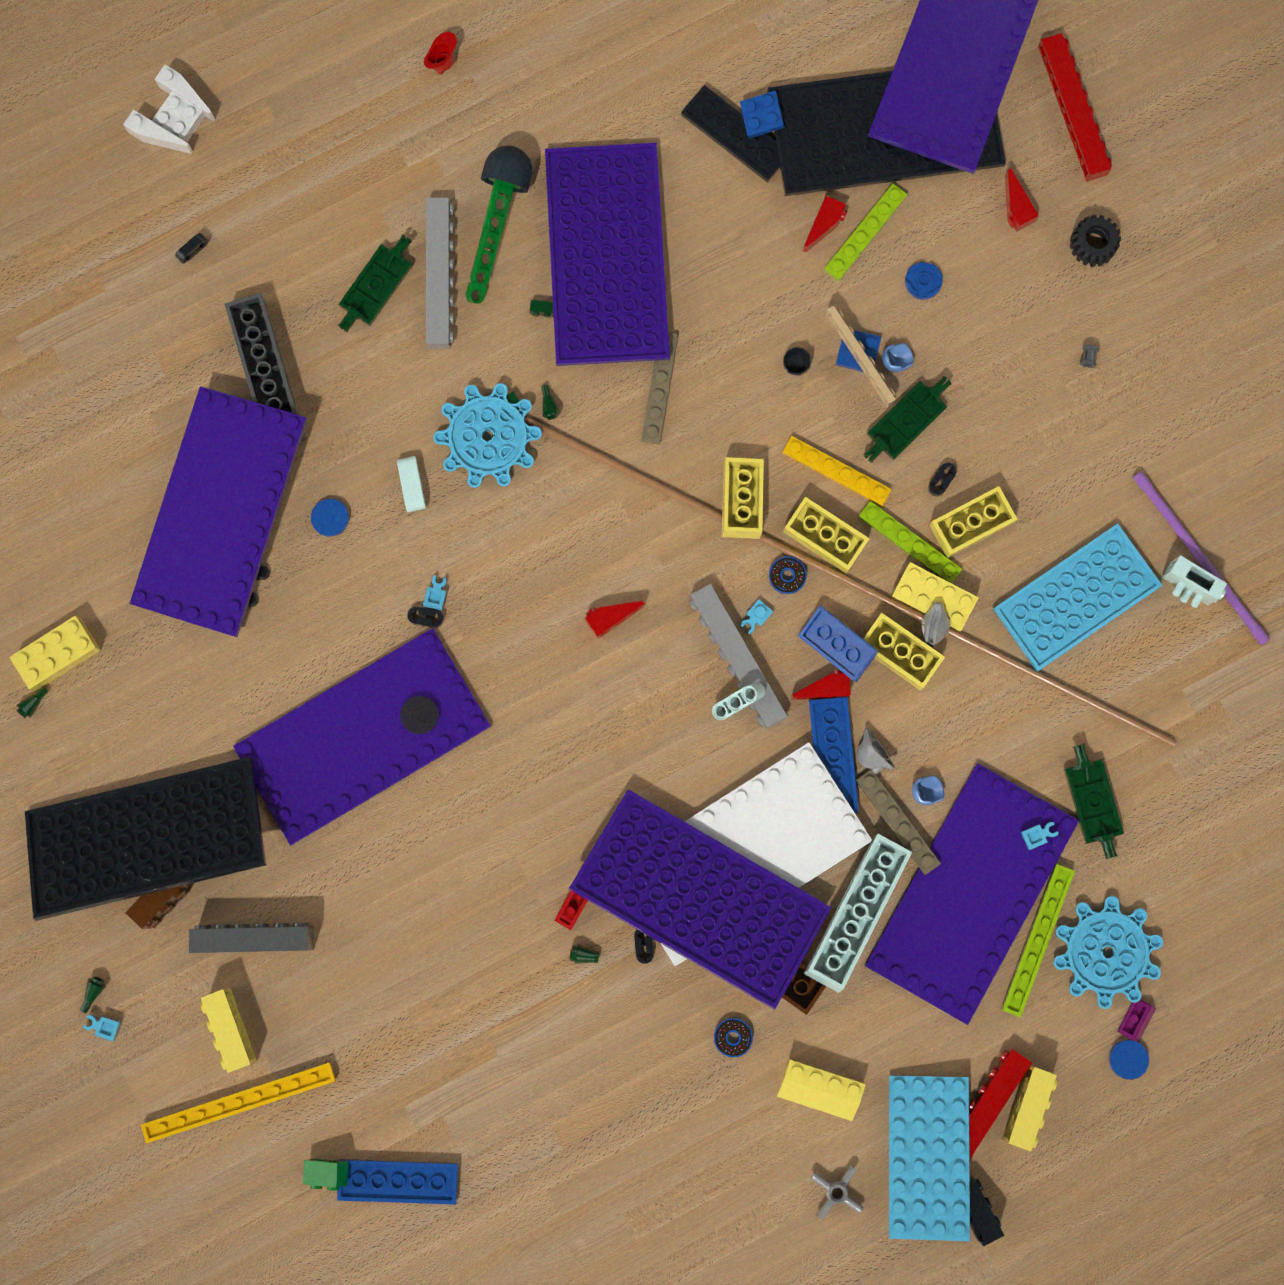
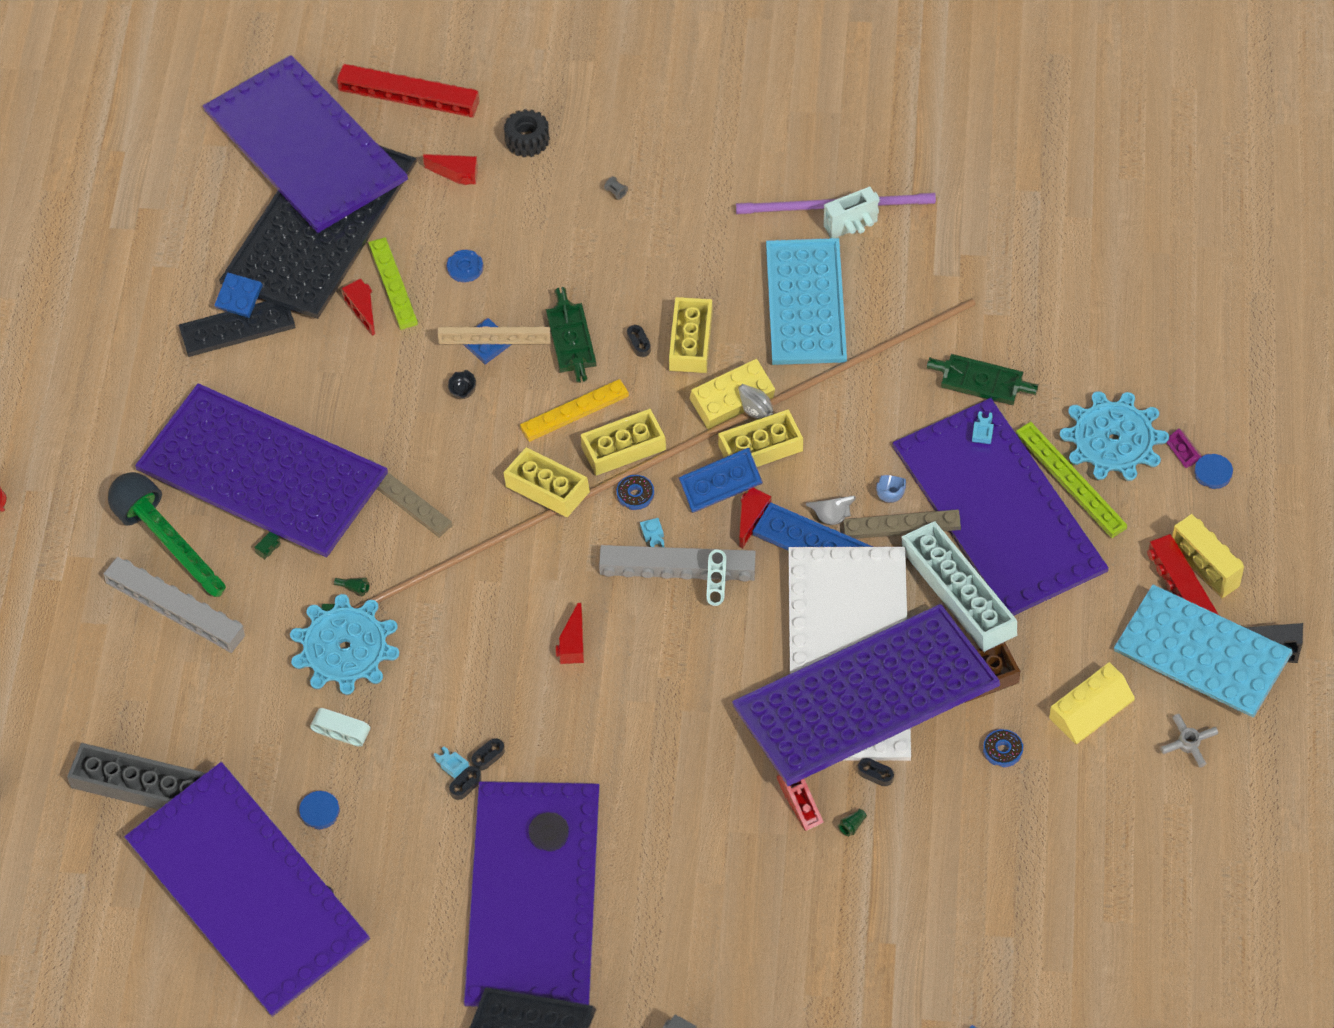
camera: 55 degrees left, 25 degrees down
(375, 284) = (144, 657): dark green plate -> none
(464, 614) = (487, 754): none -> black beam
(897, 358) = (514, 314): medium blue hair -> none
(909, 542) = (666, 393): lime plate -> none

